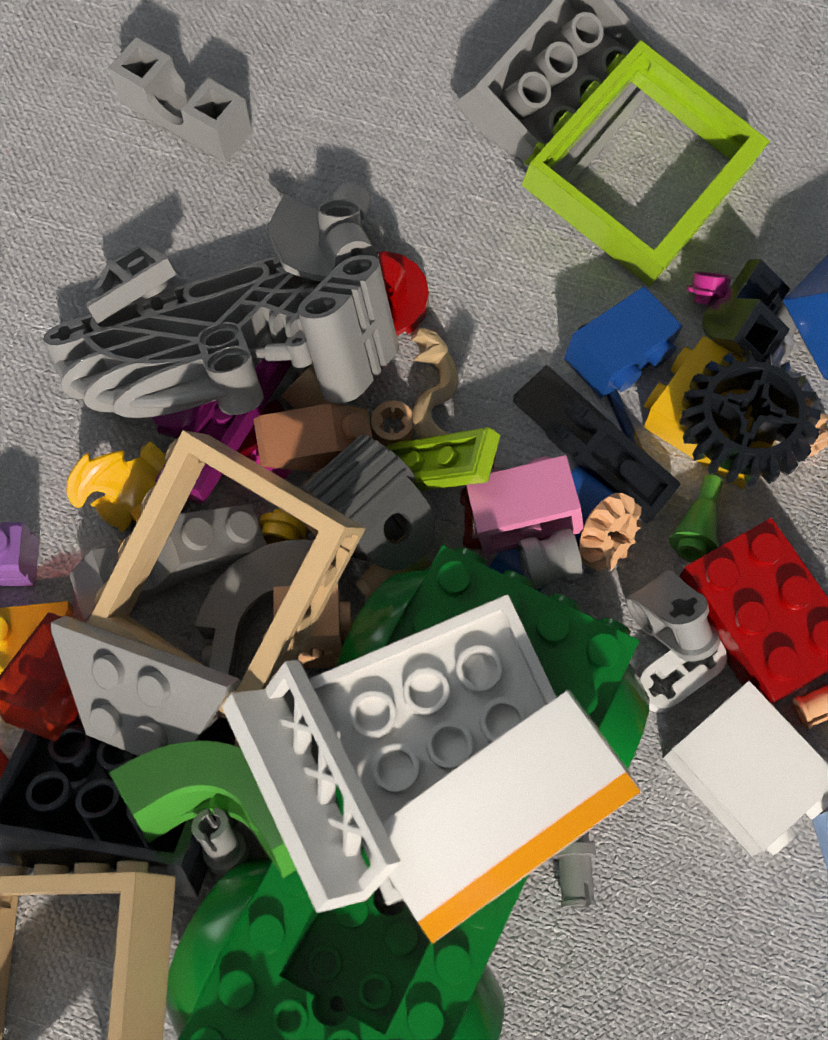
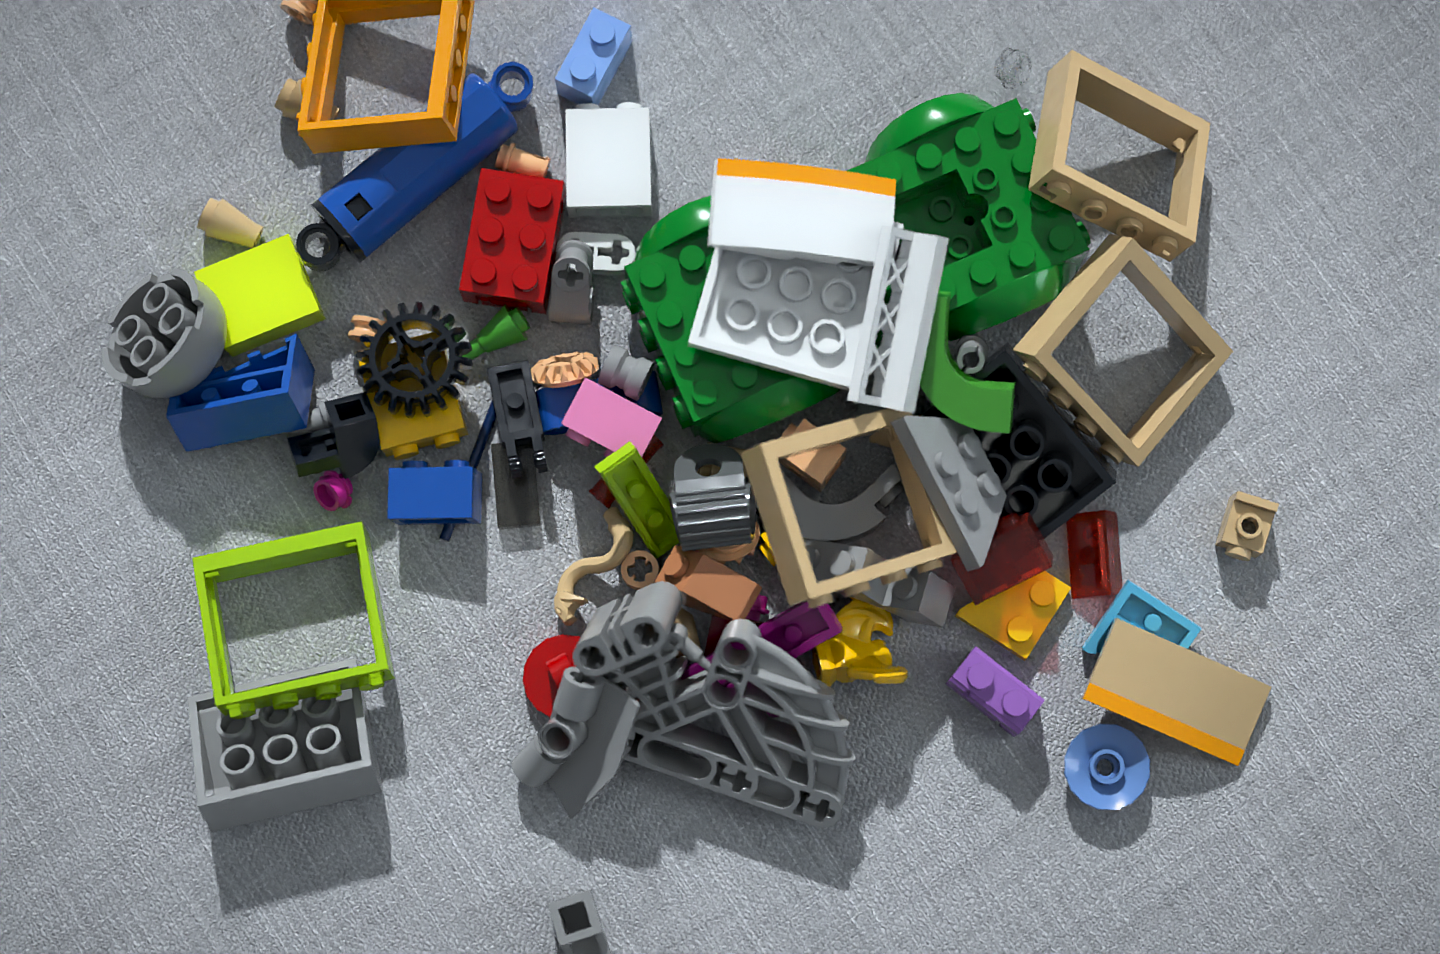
camera: 145 degrees left, 10 degrees up
(129, 277) = (741, 823): light grey wing -> none

